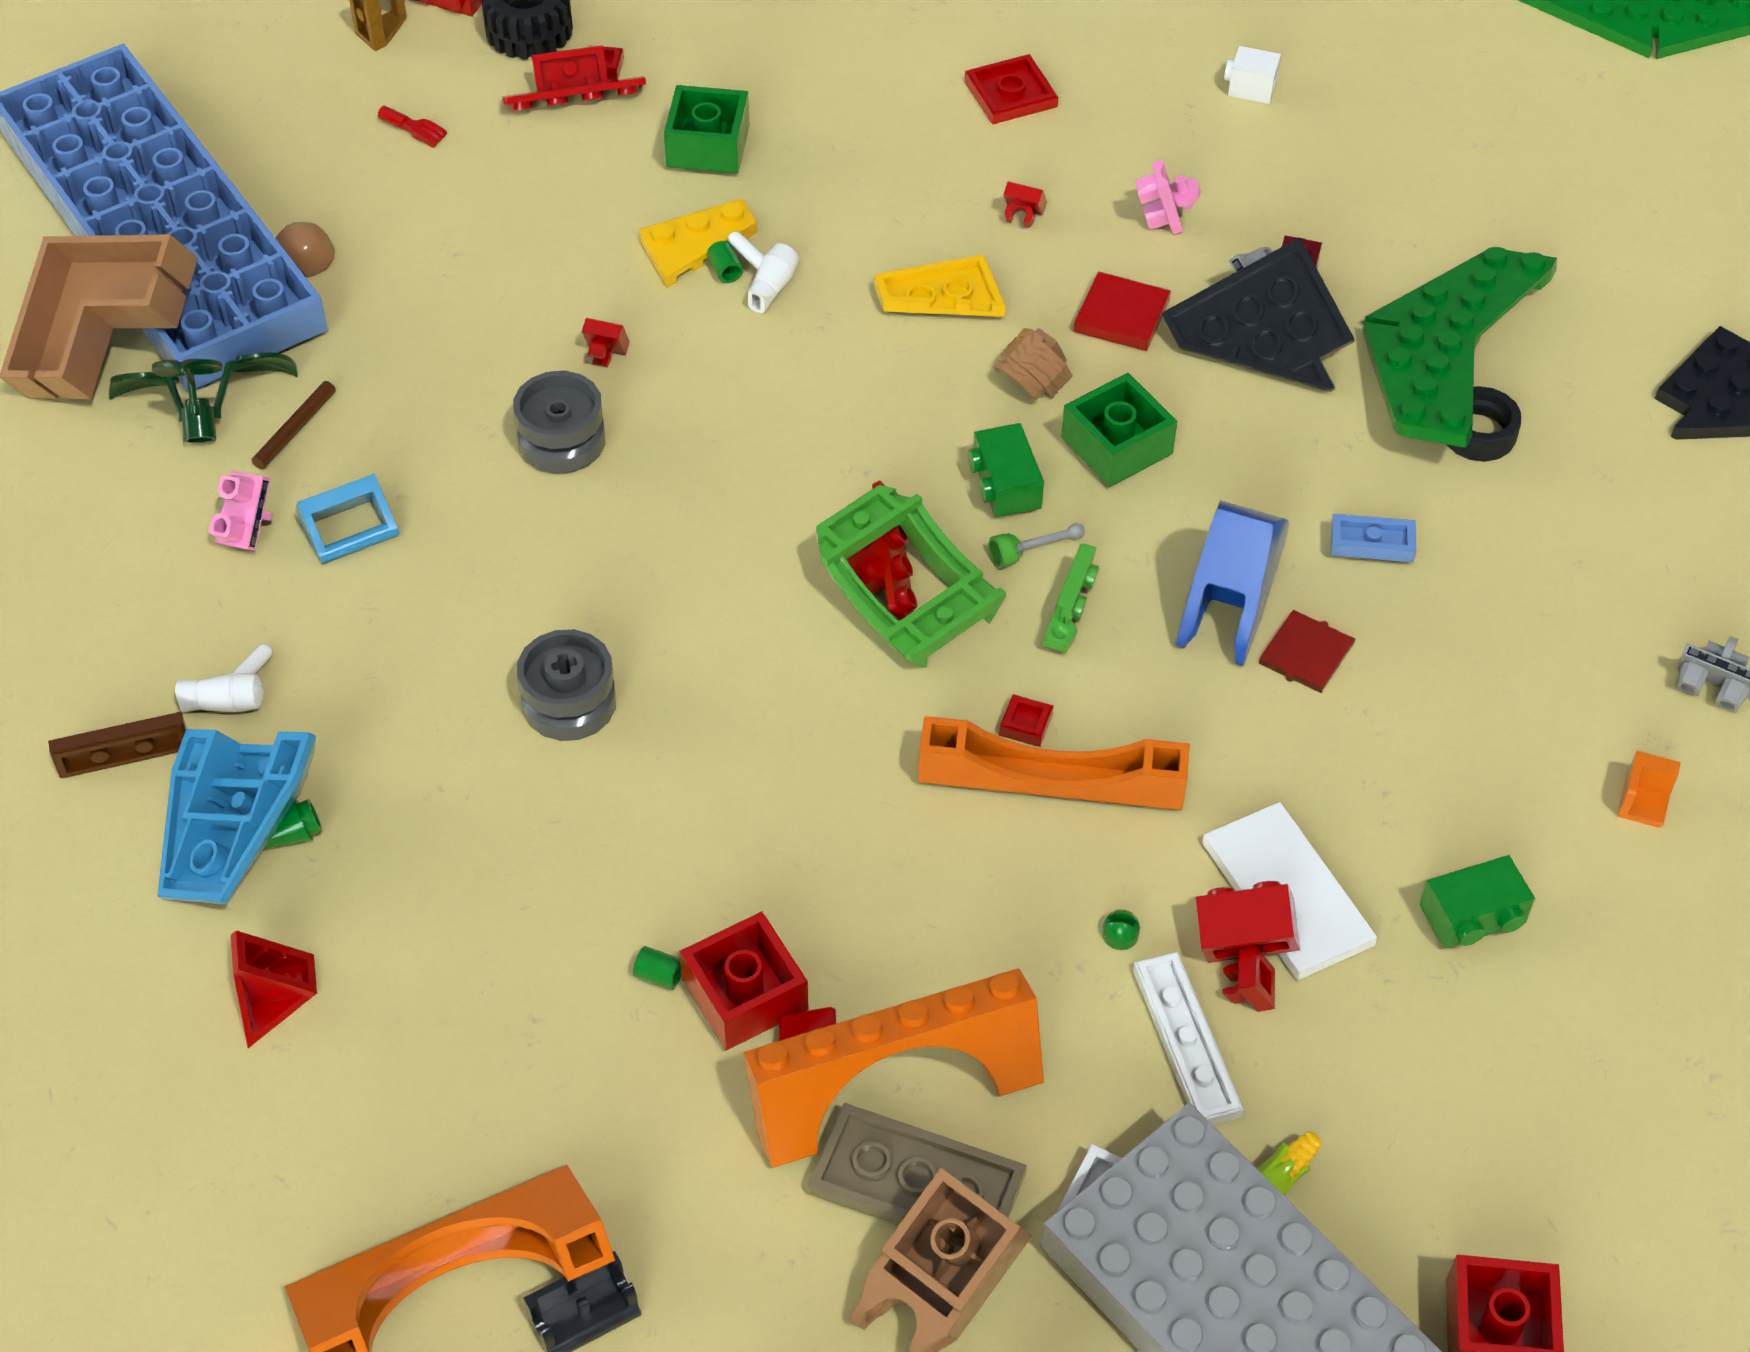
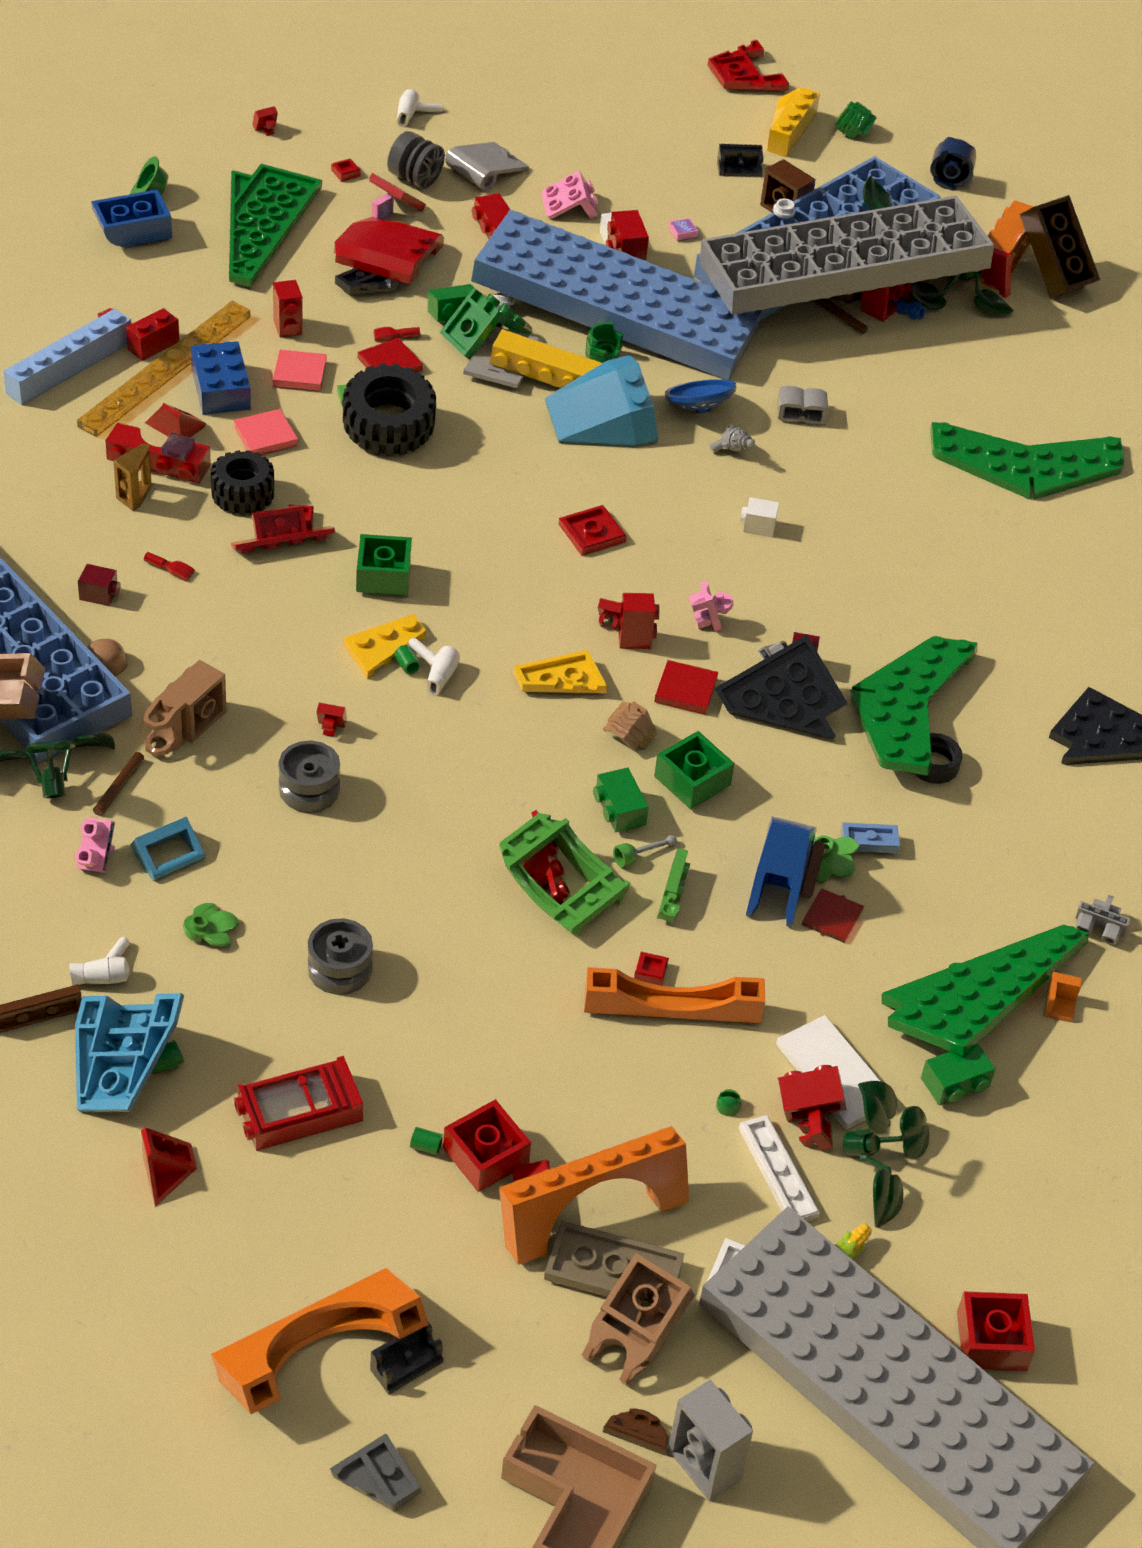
camera: 10 degrees left, 5 degrees down
(307, 149) = (98, 585): none -> dark red brick
(390, 631) = (210, 925): none -> bright green plate
(398, 321) = (186, 708): none -> medium nougat brick
(476, 903) = (299, 1104): none -> red door
(1058, 213) = (637, 620): none -> red brick
(1281, 581) = (813, 869): none -> reddish brown tile
(1317, 568) = (837, 857): none -> bright green plate
(1343, 955) = (879, 1108): none -> dark green plant
(1509, 784) = (972, 997): none -> green wing

